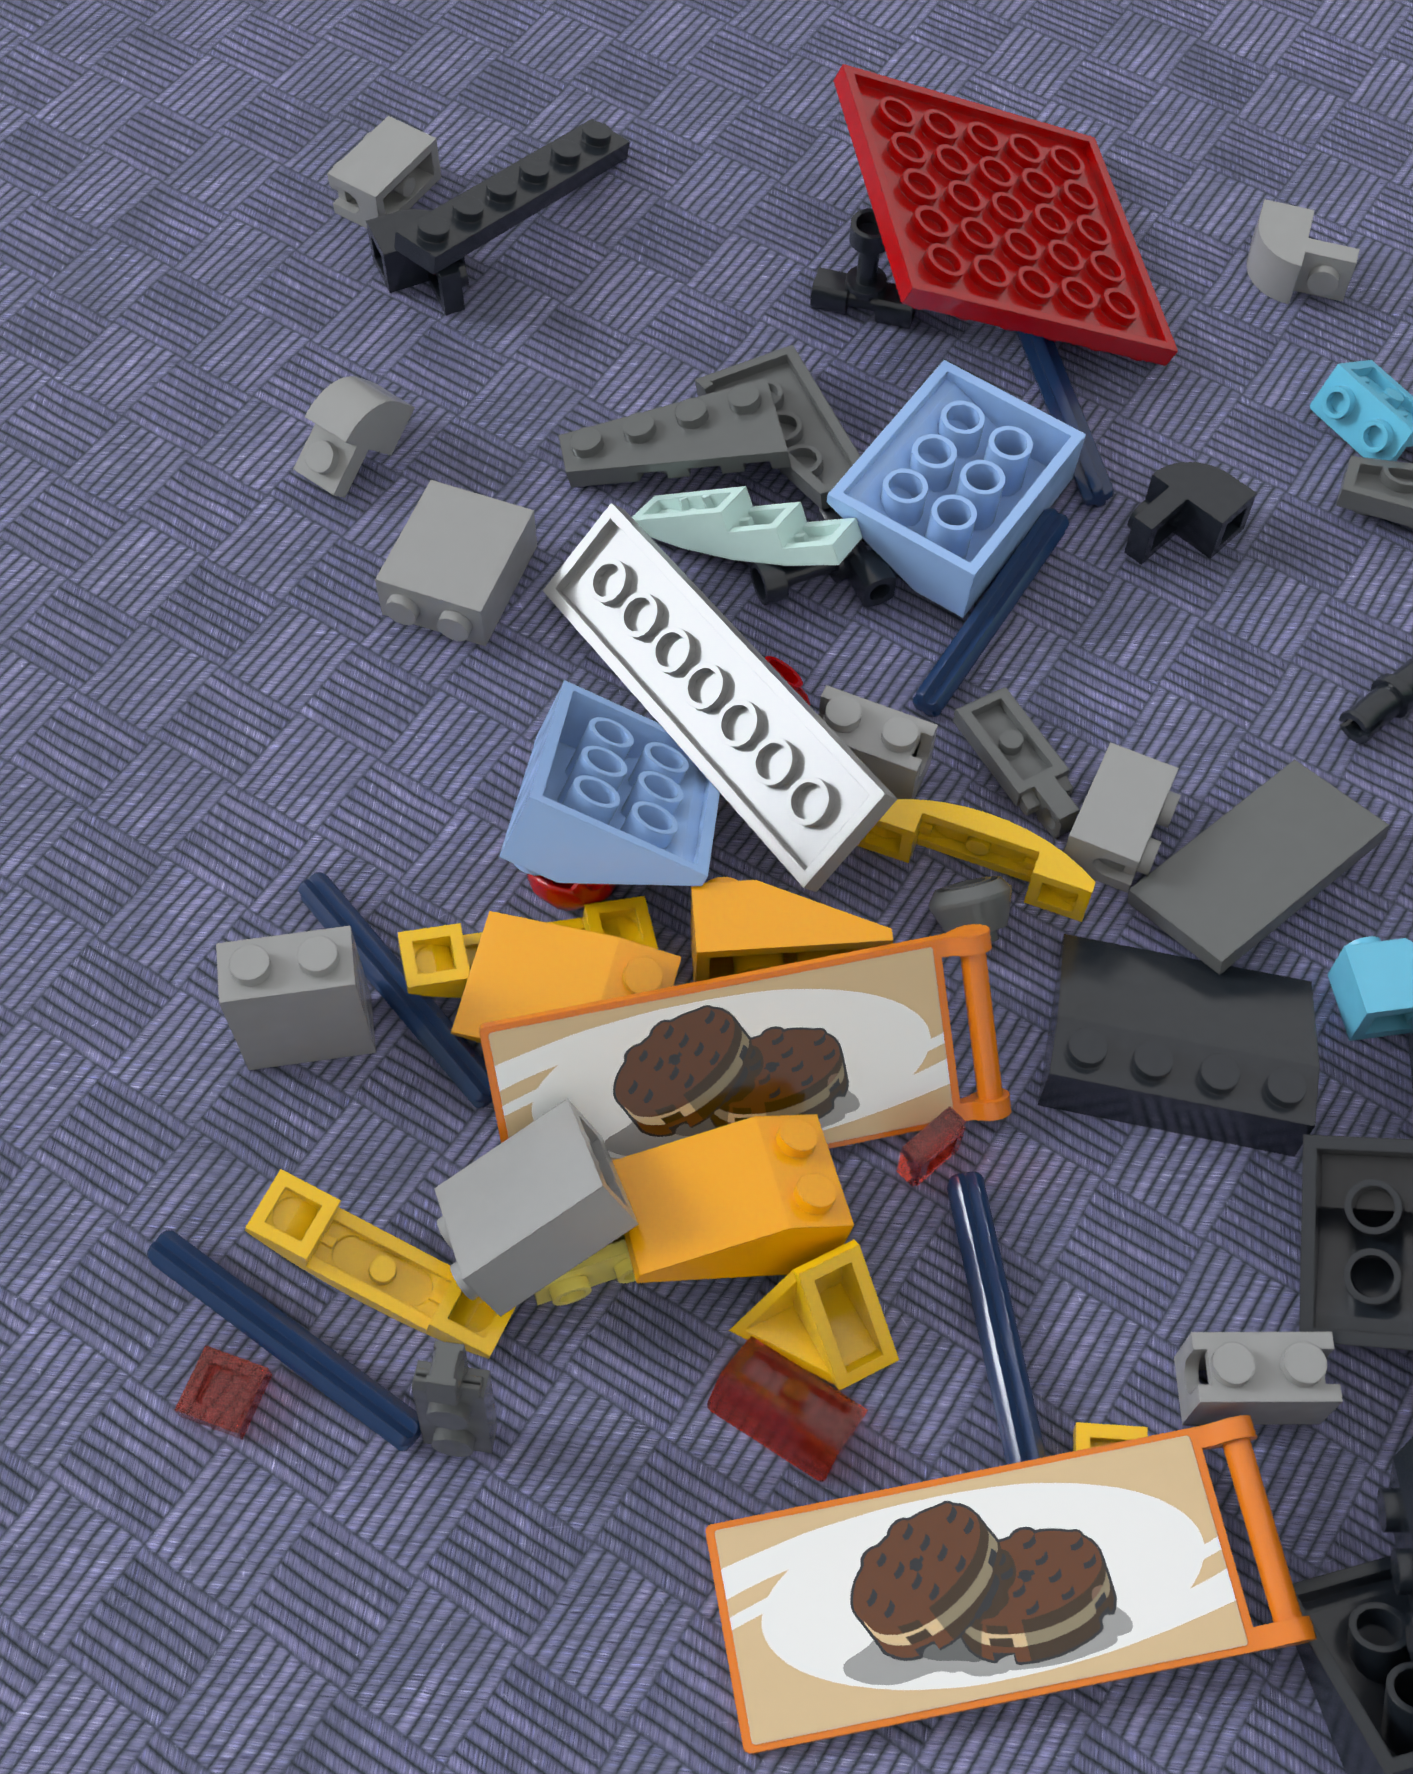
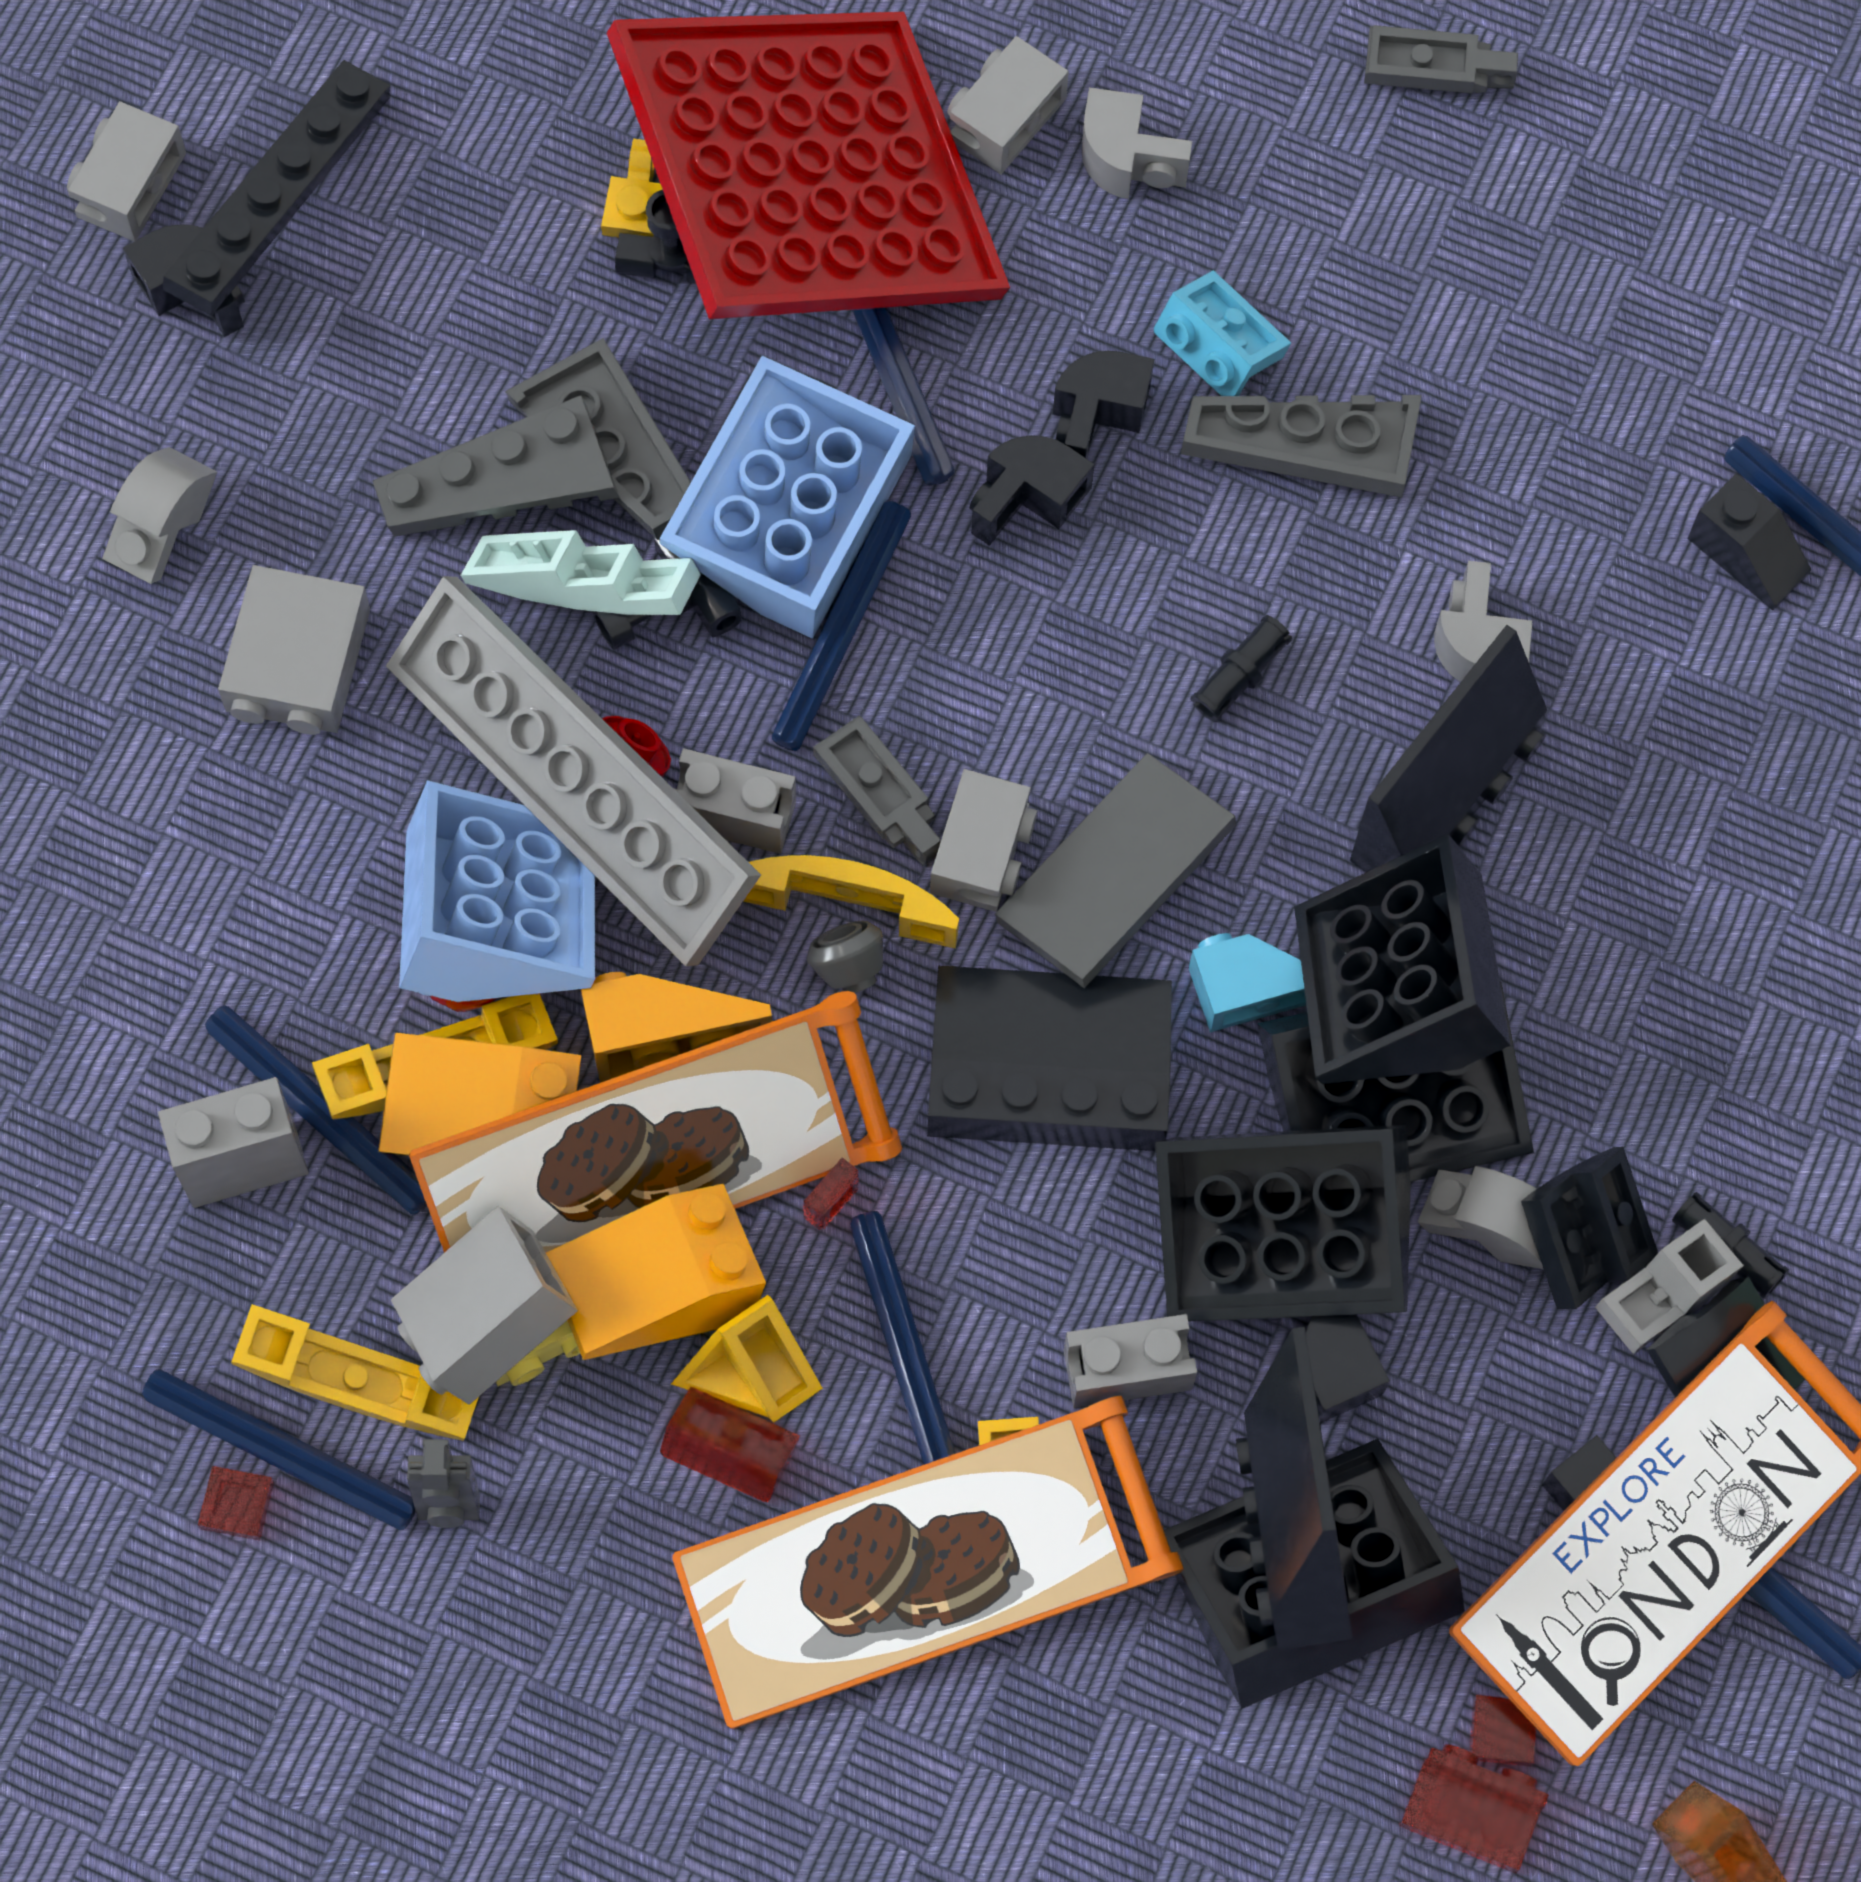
camera: 10 degrees left, 10 degrees up
(832, 247) = (629, 196): none -> yellow plate
(1185, 212) = (1007, 103): none -> light grey brick
(1264, 442) = (1101, 390): none -> black brick

